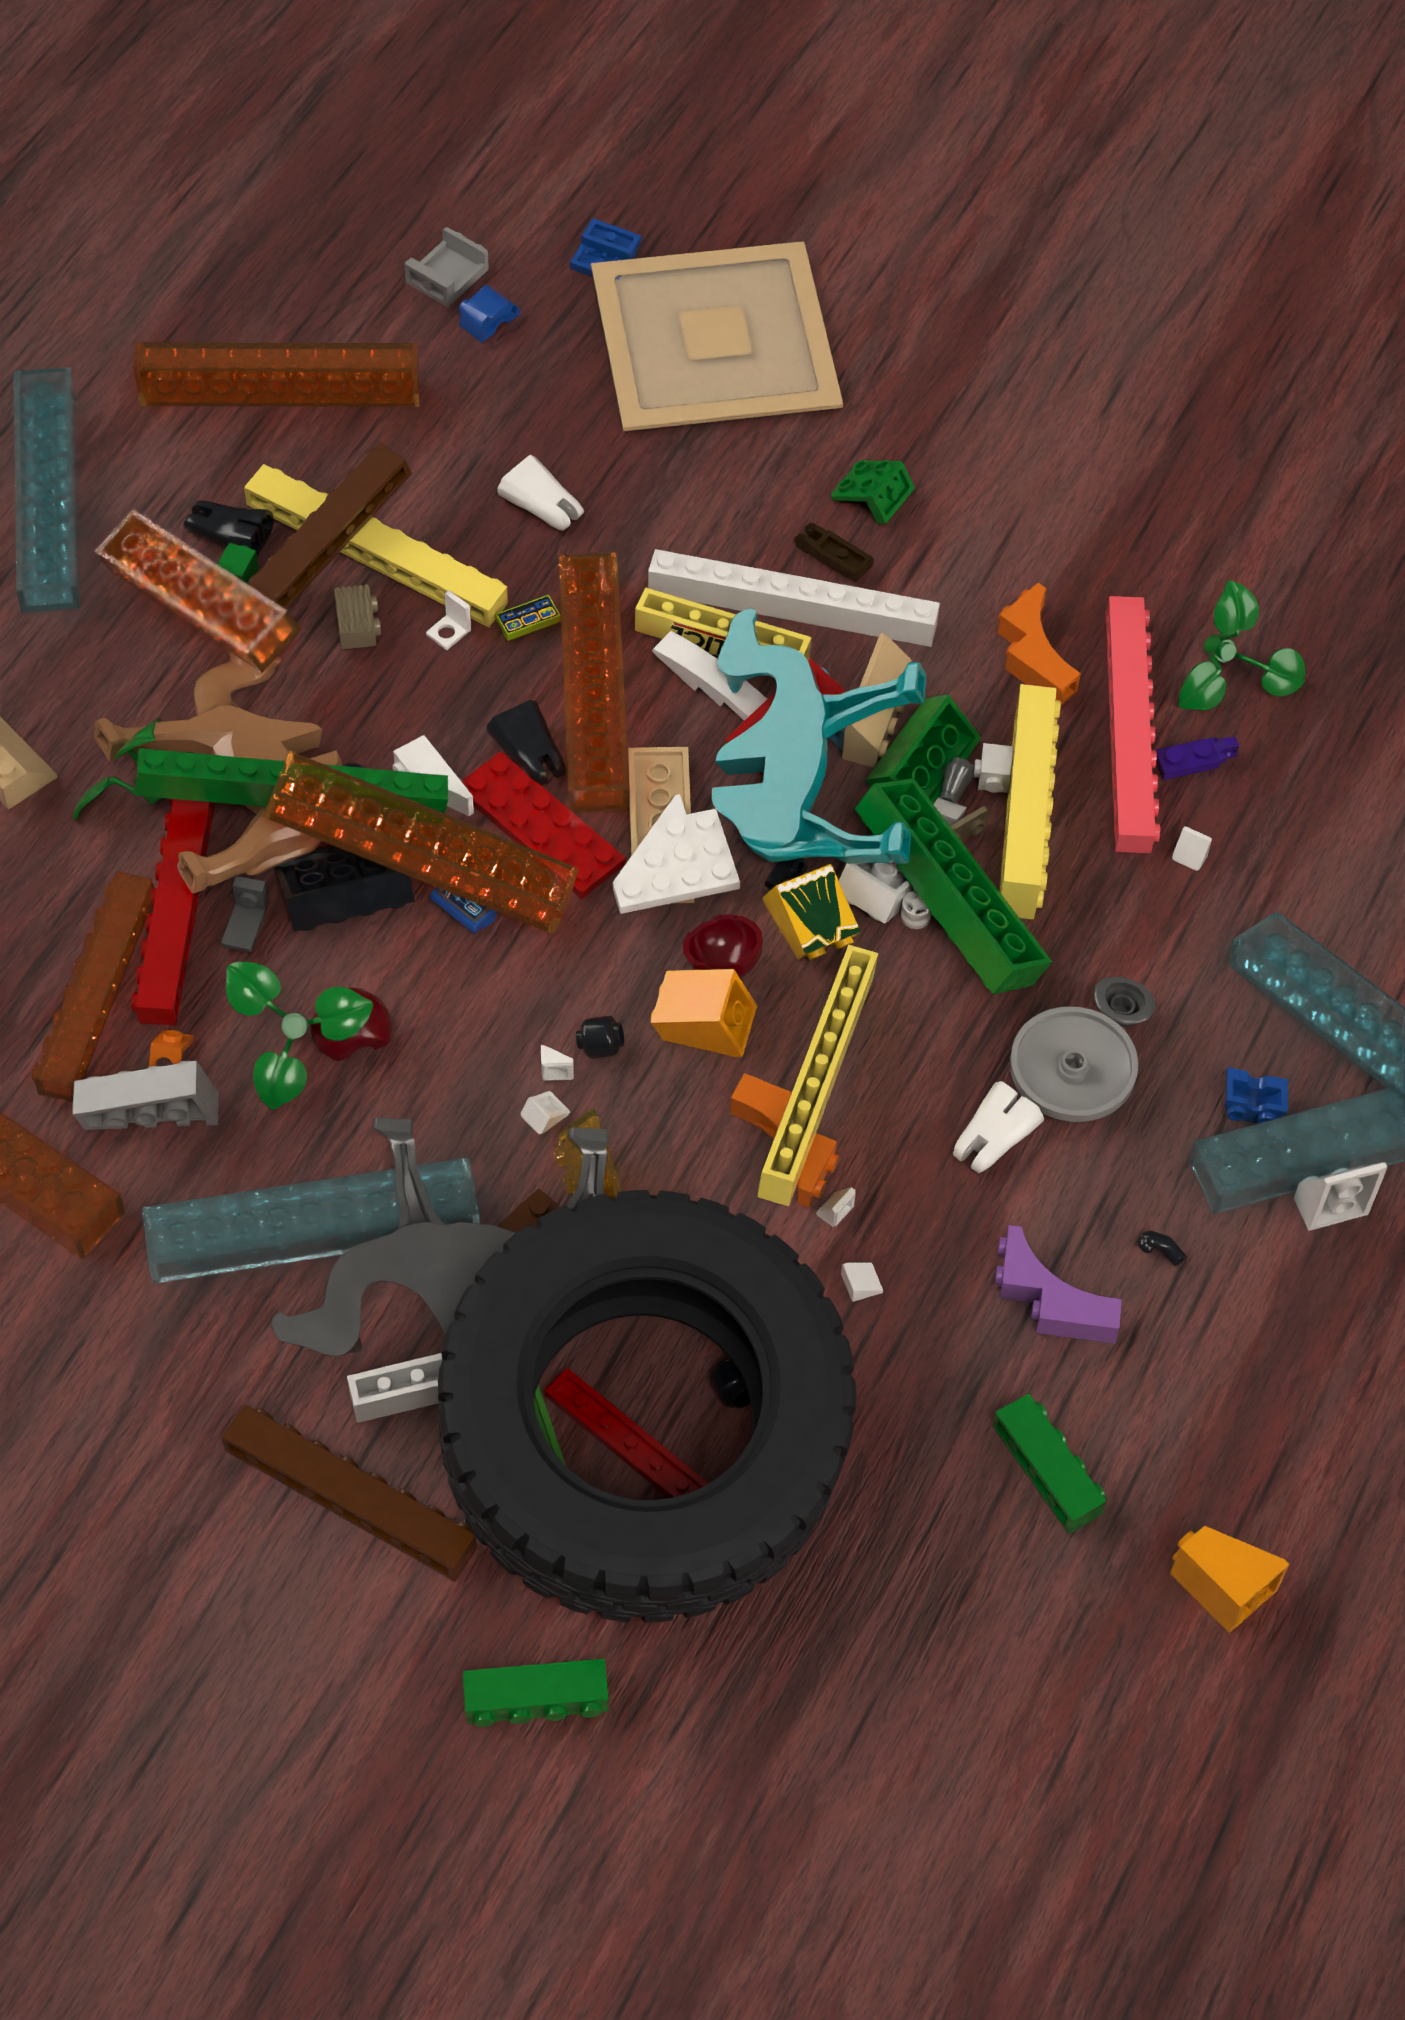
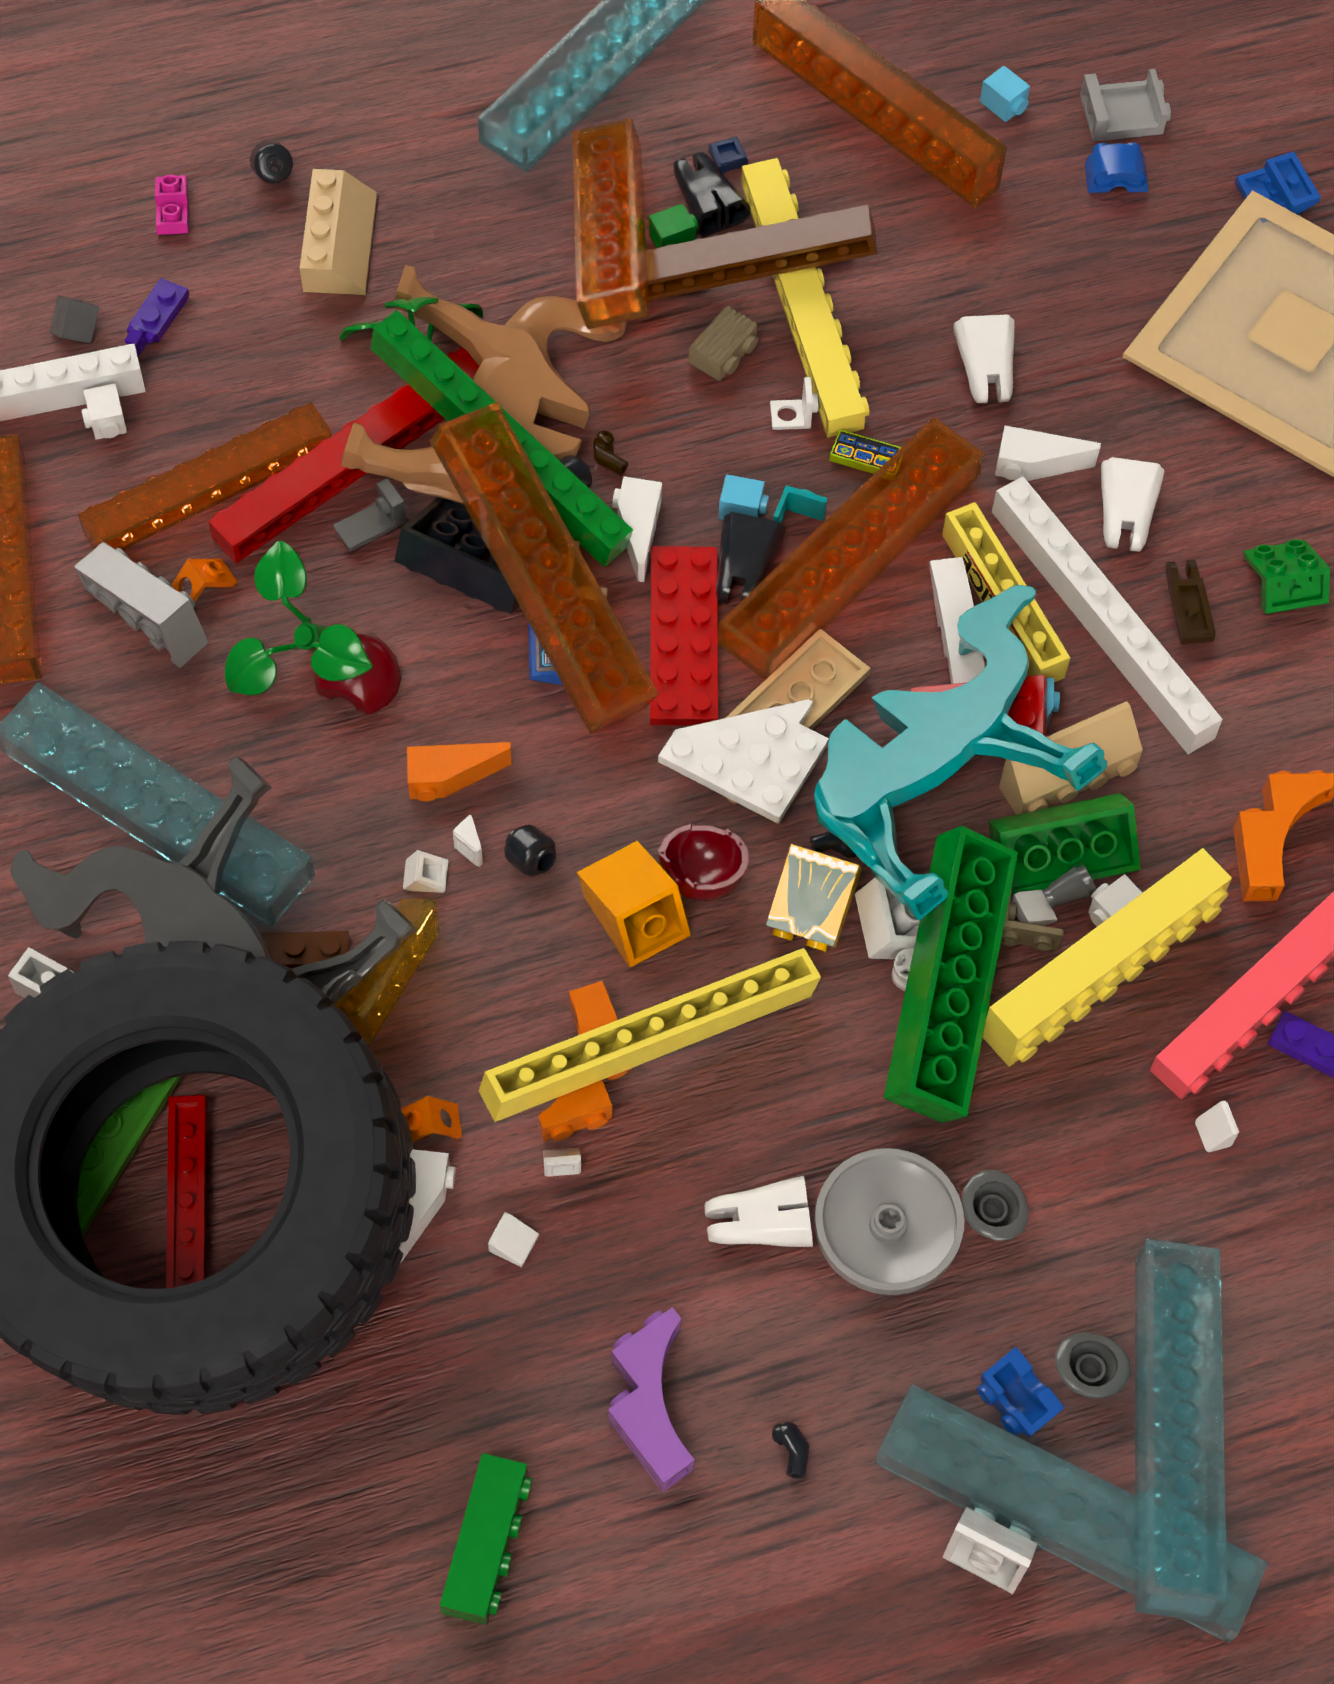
camera: 45 degrees right, 5 degrees up
(212, 490) = (728, 154): none -> dark blue tile
(355, 751) = (605, 455): none -> dark brown arm
(361, 315) = (1005, 94): none -> medium azure brick
(482, 705) = (742, 497): none -> medium azure brick
(482, 1037) = (449, 768): none -> orange slope
(525, 679) = (801, 502): none -> teal bracket
(641, 532) = (1042, 454): none -> white slope
(730, 516) = (1129, 499): none -> white piece
(1277, 1042) = (1092, 1365): none -> dark grey hat

